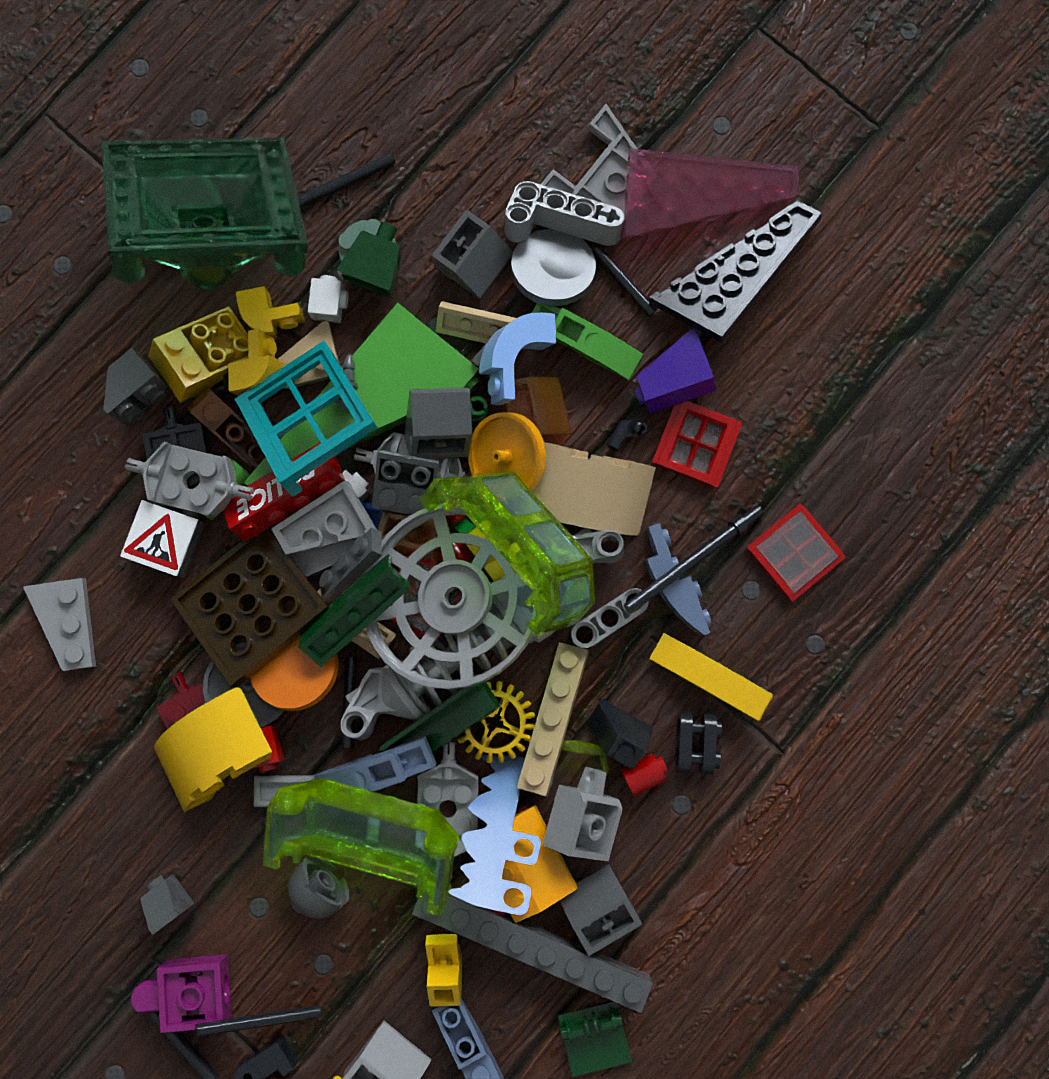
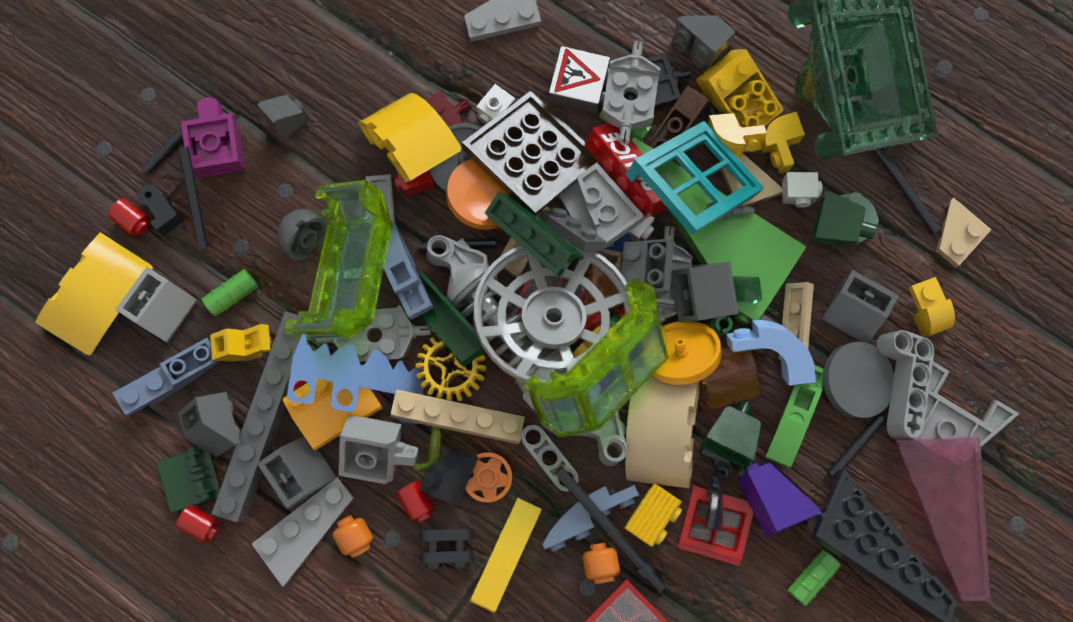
camera: 90 degrees right, 5 degrees down
(183, 643) = (493, 104): none -> white brick
(379, 980) = (229, 292): none -> bright green axle
(397, 132) = (960, 233): none -> tan wing
(441, 374) = (747, 289): none -> clear green slope
(484, 175) = (934, 310): none -> yellow brick
(536, 1009) = (210, 424): none -> dark grey slope
(601, 410) = (734, 435): none -> dark green torso
(623, 689) = (489, 477): none -> orange wheel
(649, 1029) = (198, 524): none -> red brick
(669, 913) = (295, 537): none -> light grey wing
(677, 849) = (352, 536): none -> orange head
(682, 510) = (653, 515): none -> yellow brick
(686, 441) = (715, 510): none -> black brick
(729, 572) = (601, 563): none -> orange head
(761, 345) = (814, 578): none -> bright green axle

